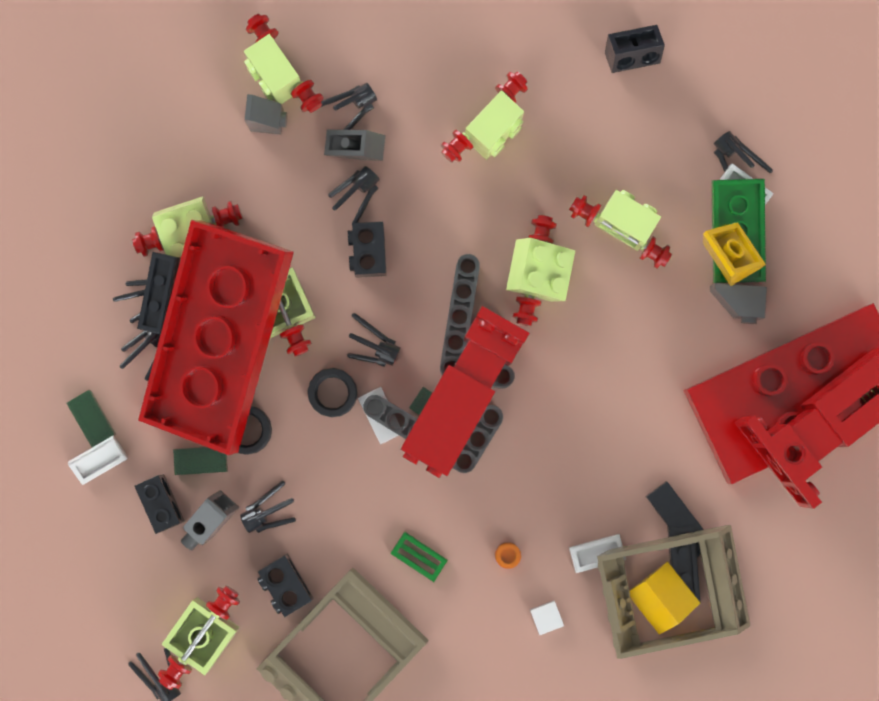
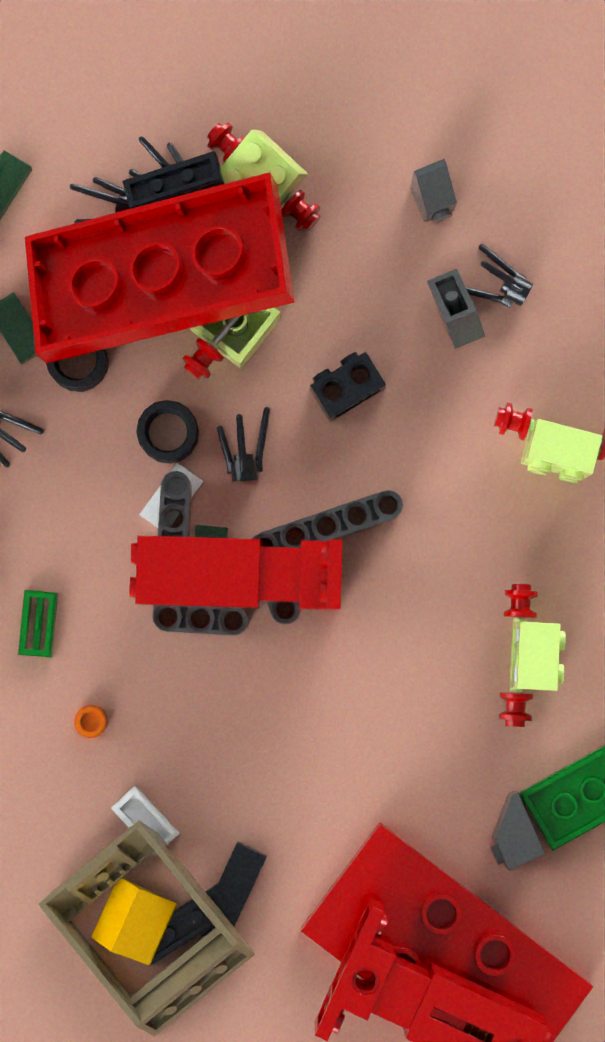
camera: 70 degrees right, 0 degrees up
(275, 72) = (491, 168): yellowish green brick -> none
(363, 181) = (421, 338): black plant -> none
(539, 270) = (426, 587): yellowish green brick -> none
(546, 617) = (44, 801): white tile -> none
(732, 252) = (563, 794): yellow slope -> none

